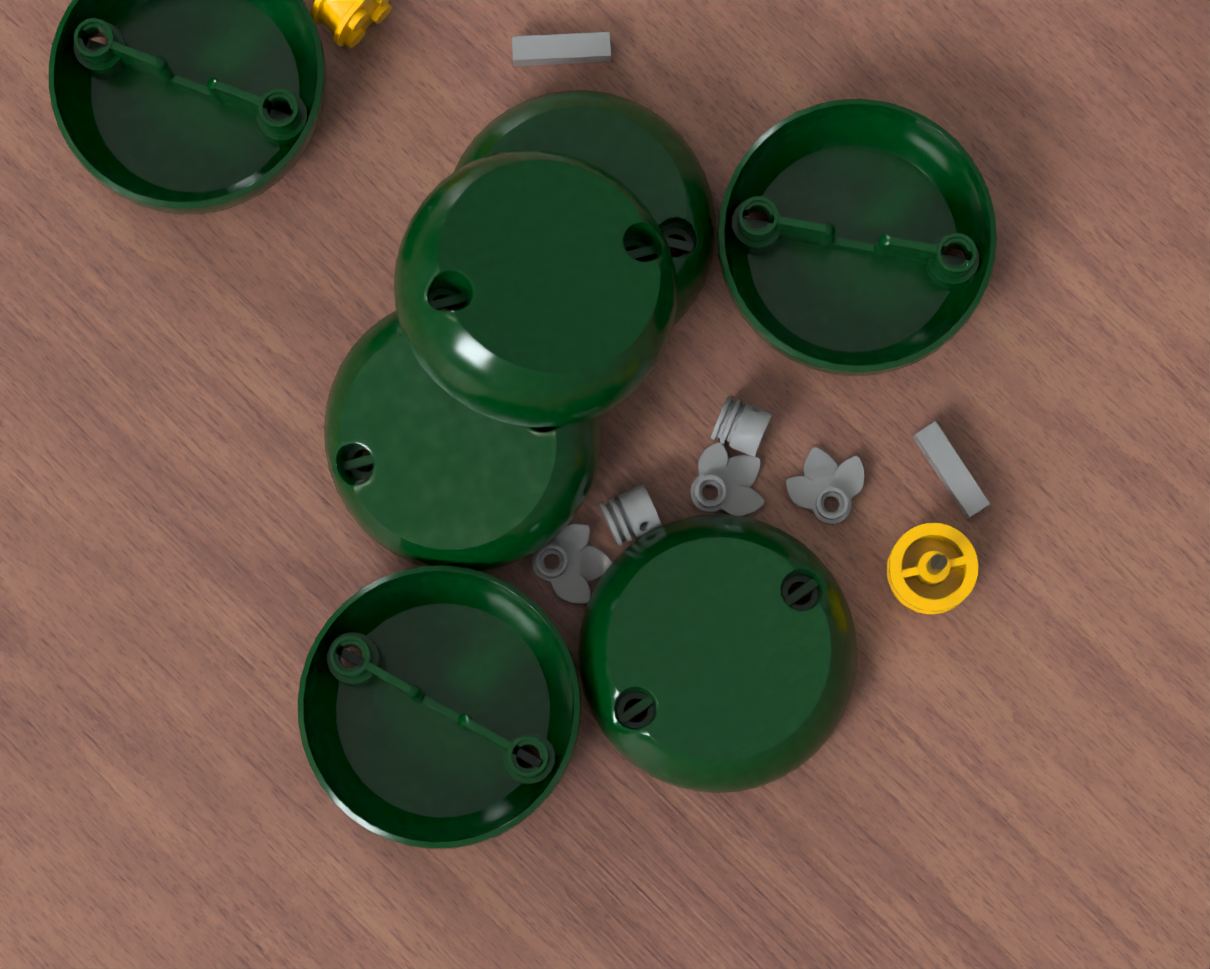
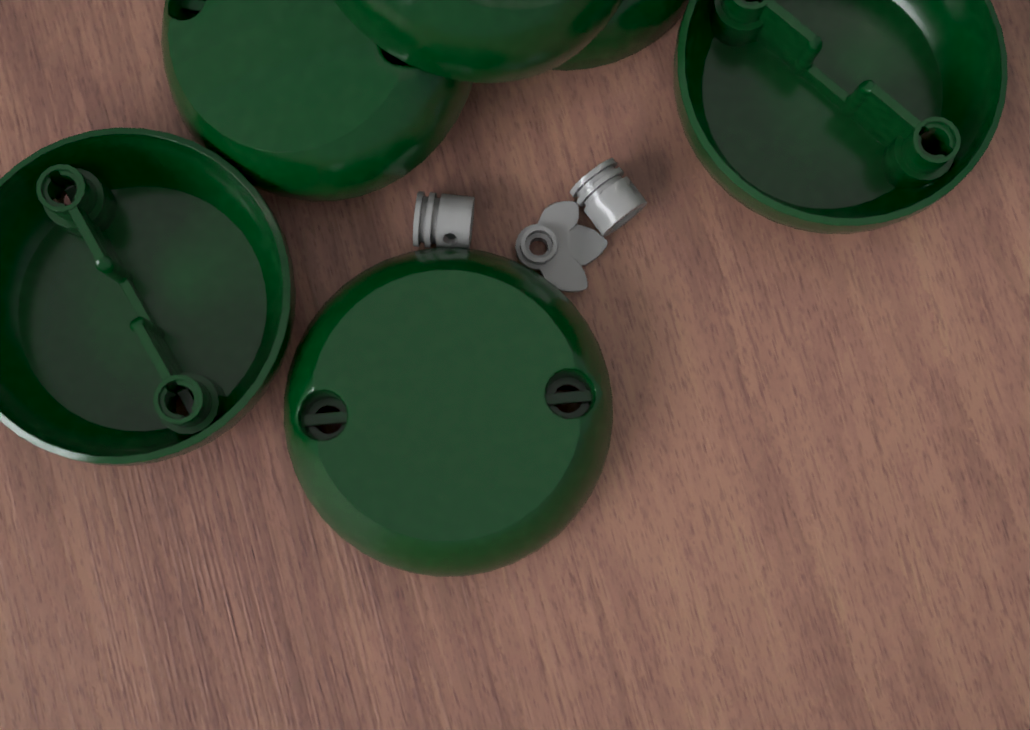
camera: 20 degrees right, 0 degrees up
(577, 564) = (364, 239): light grey plate -> none
(826, 480) = (662, 303): light grey plate -> none
(932, 568) = (719, 452): yellow wheel -> none
(951, 470) = (795, 365): light grey piece -> none

